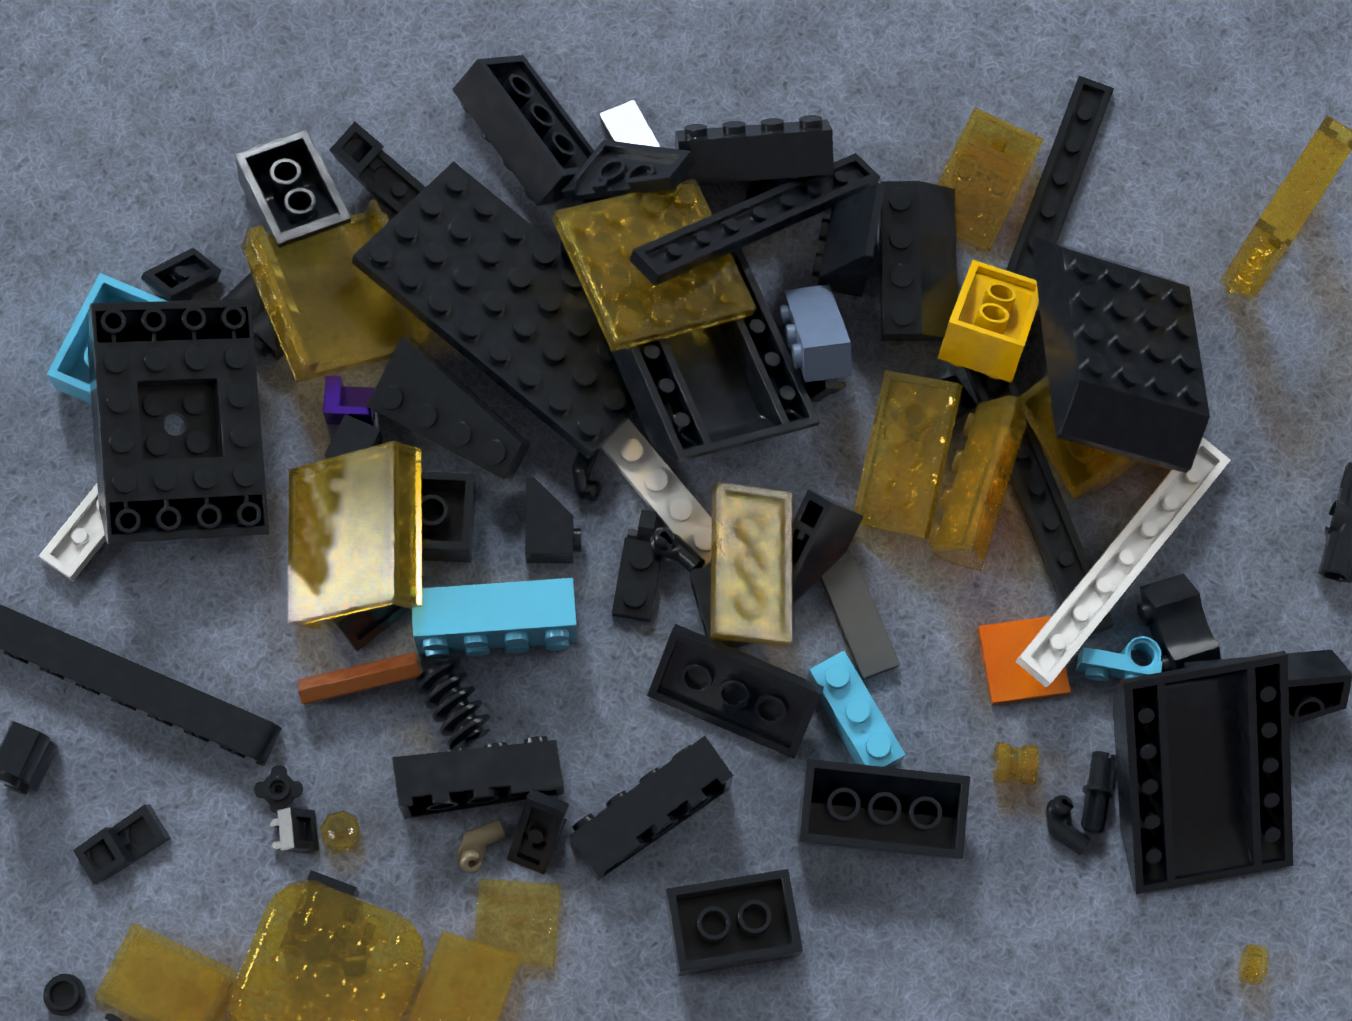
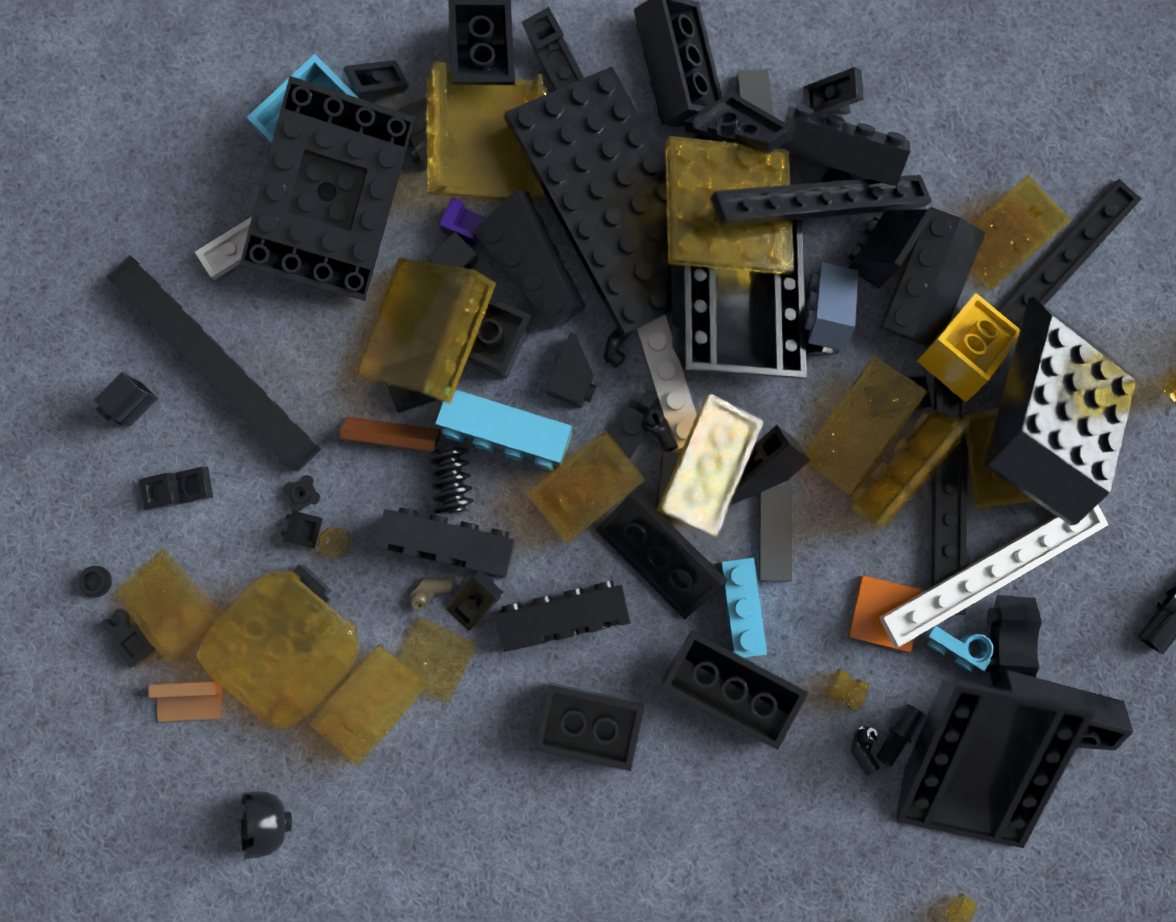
camera: 25 degrees right, 10 degrees up
(616, 645) = (586, 486): none -> clear yellow brick
(721, 97) = (835, 92): none -> black slope

